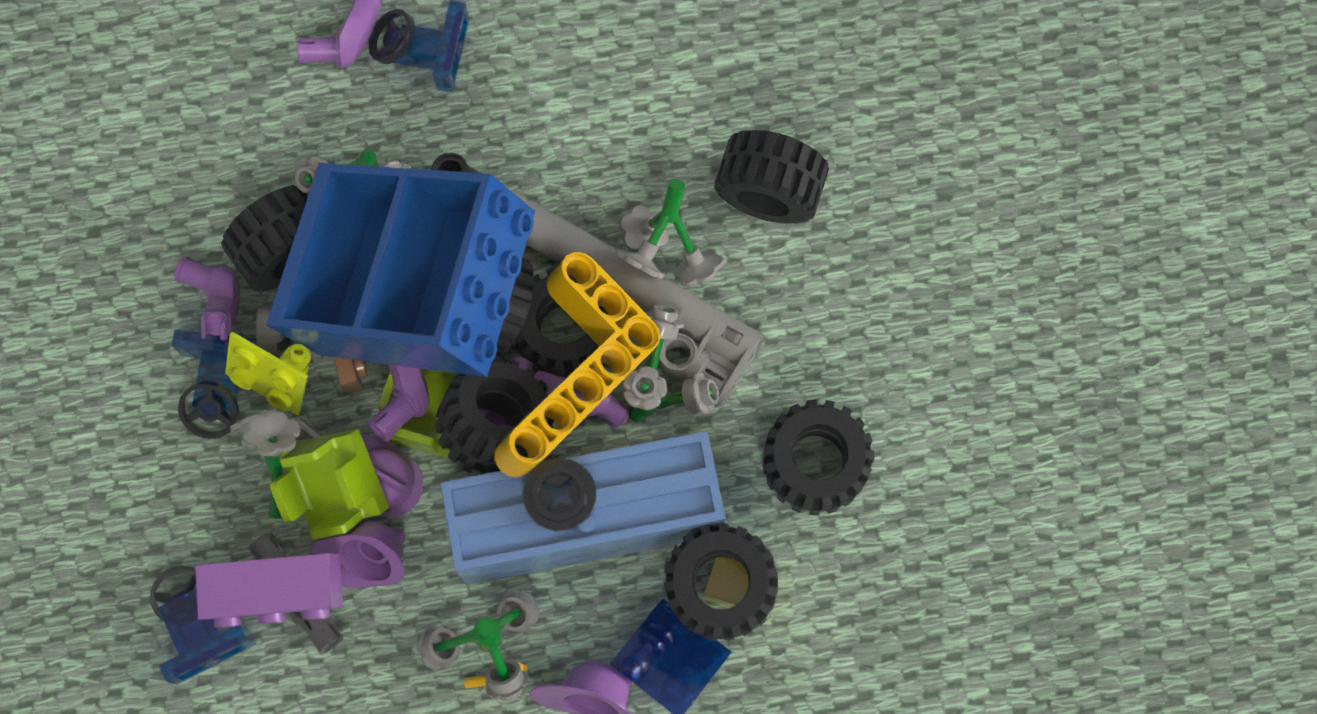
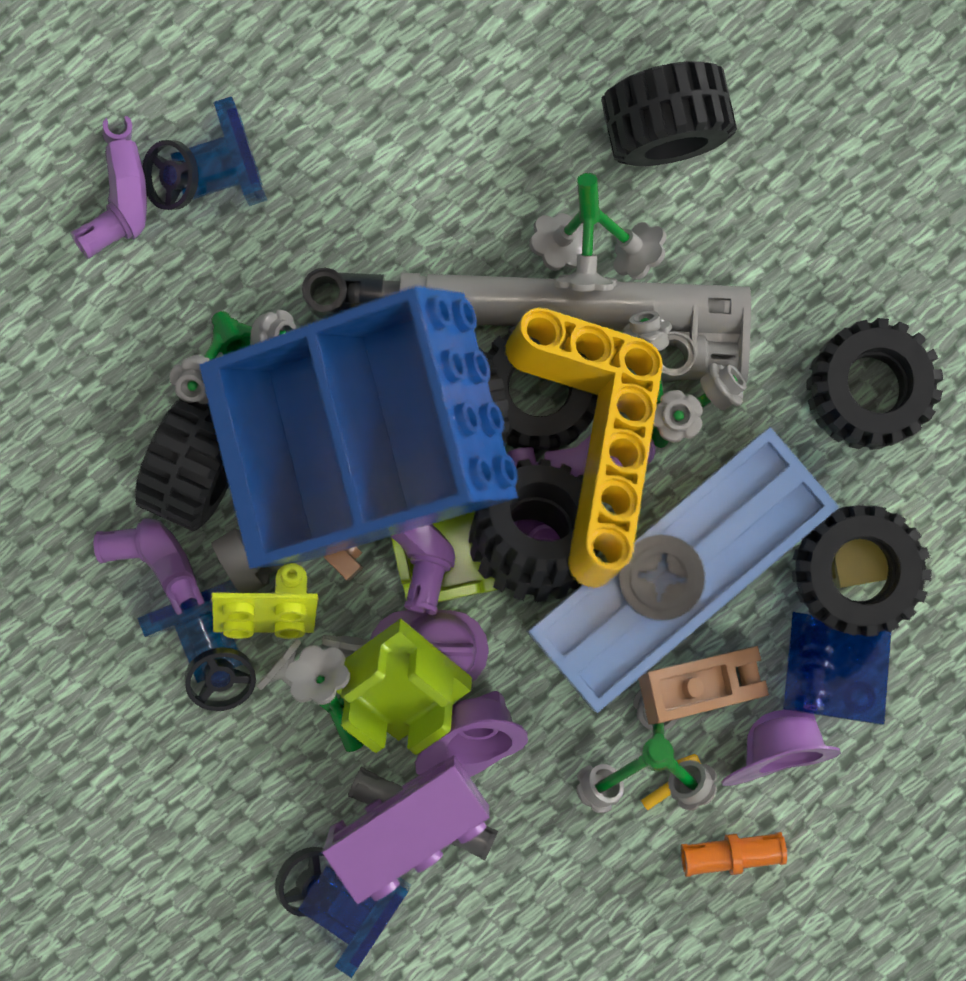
camera: 30 degrees left, 10 degrees up
(557, 609) = (702, 685): none -> medium nougat plate

